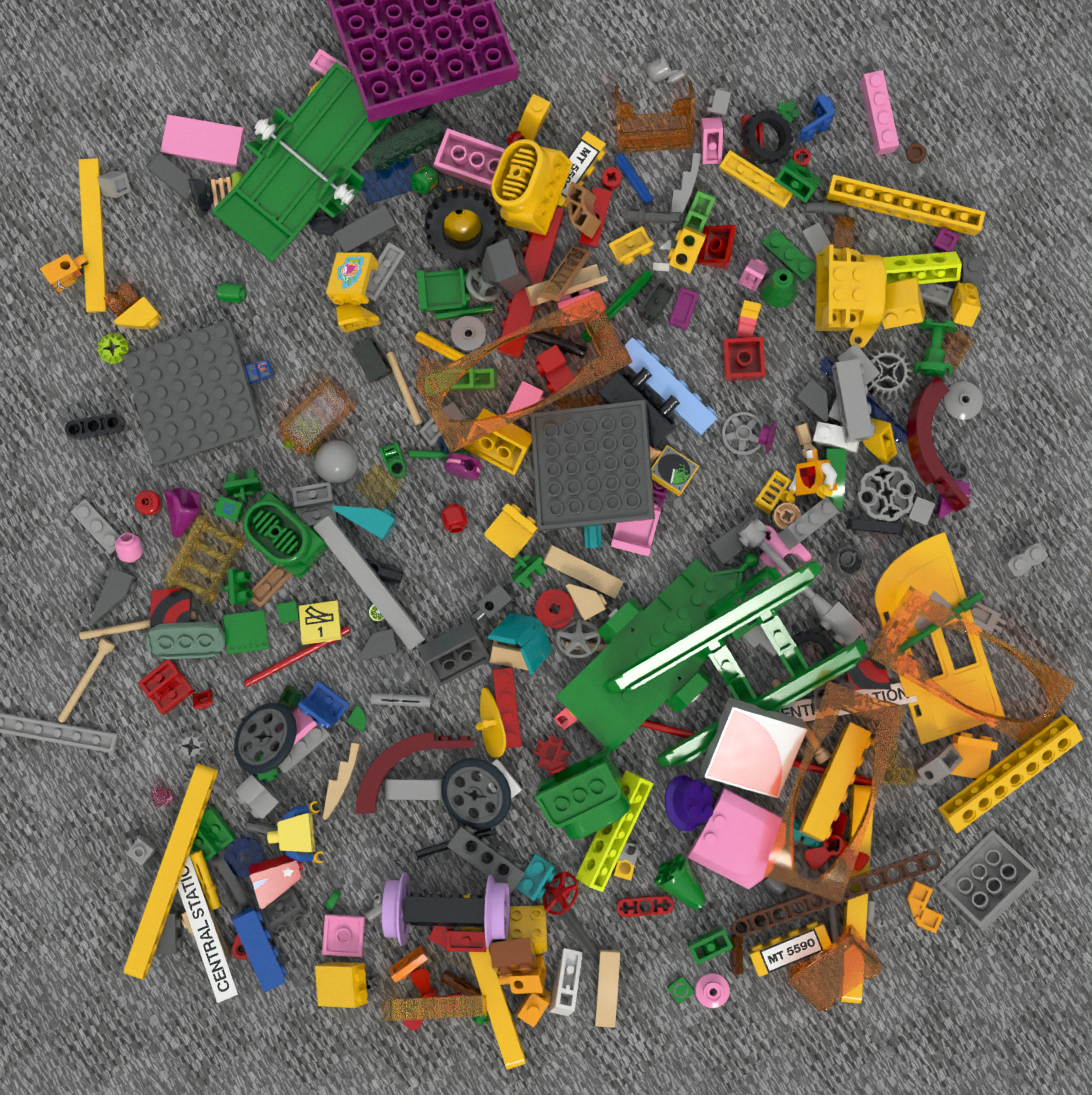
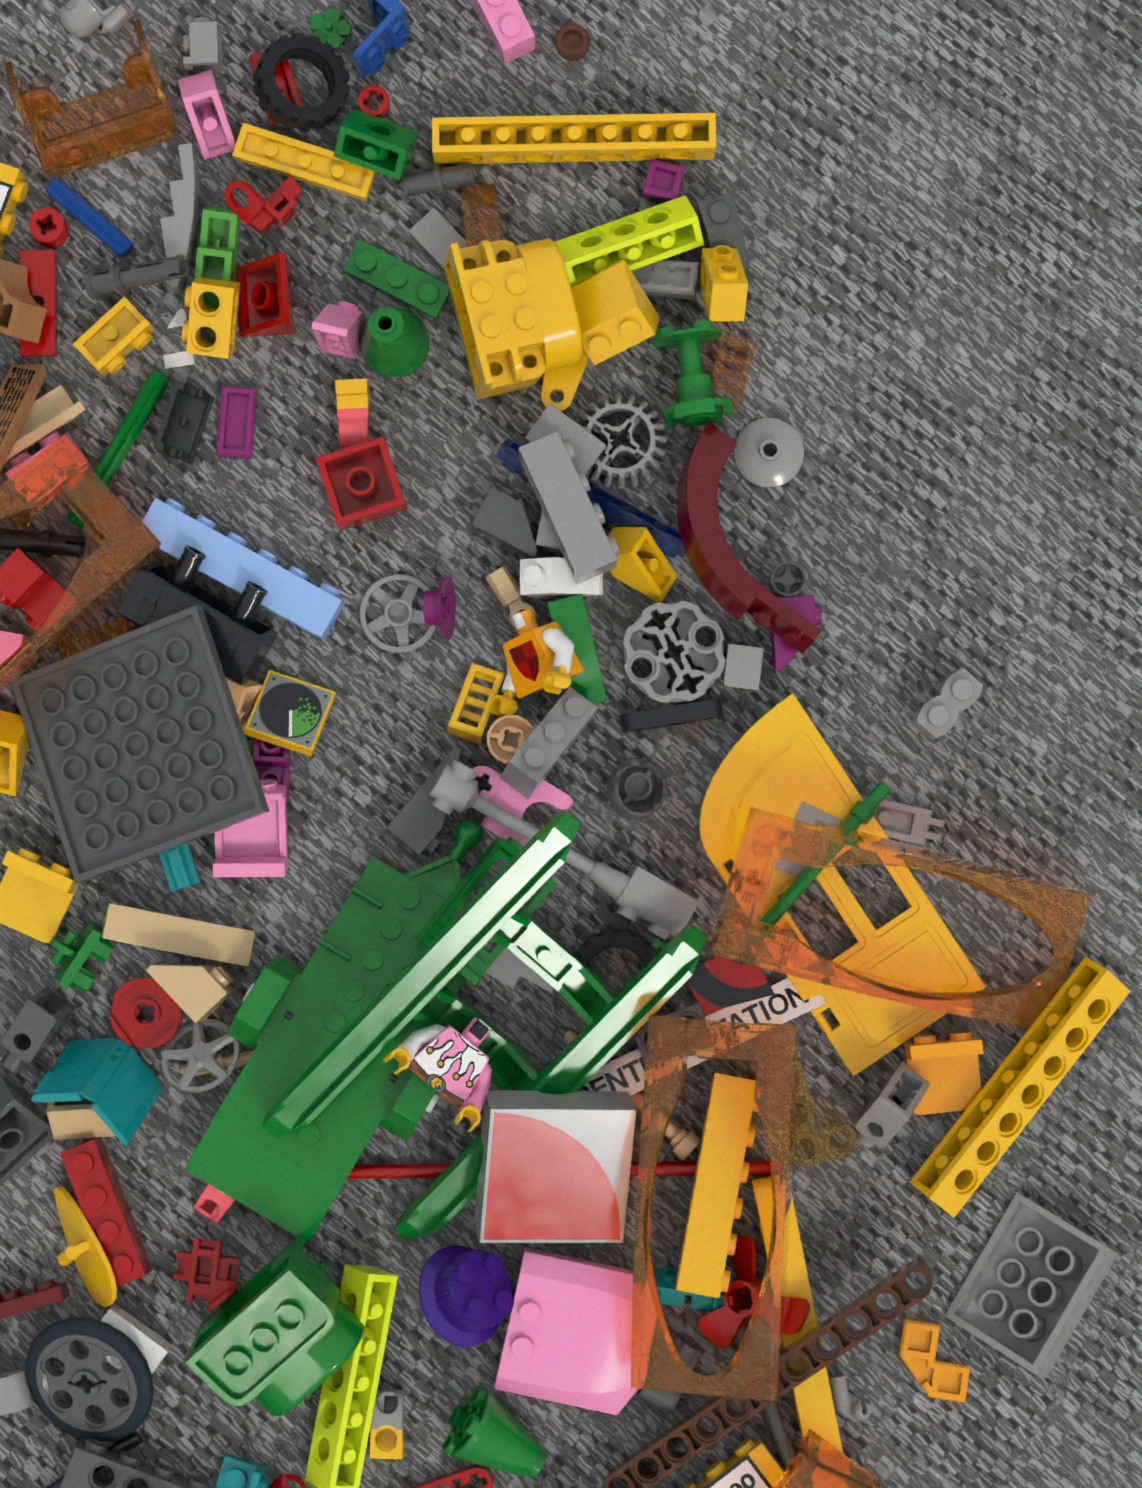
camera: 20 degrees left, 0 degrees up
(714, 679) = (450, 1065): none -> torso
(730, 200) = (263, 213): none -> red piece

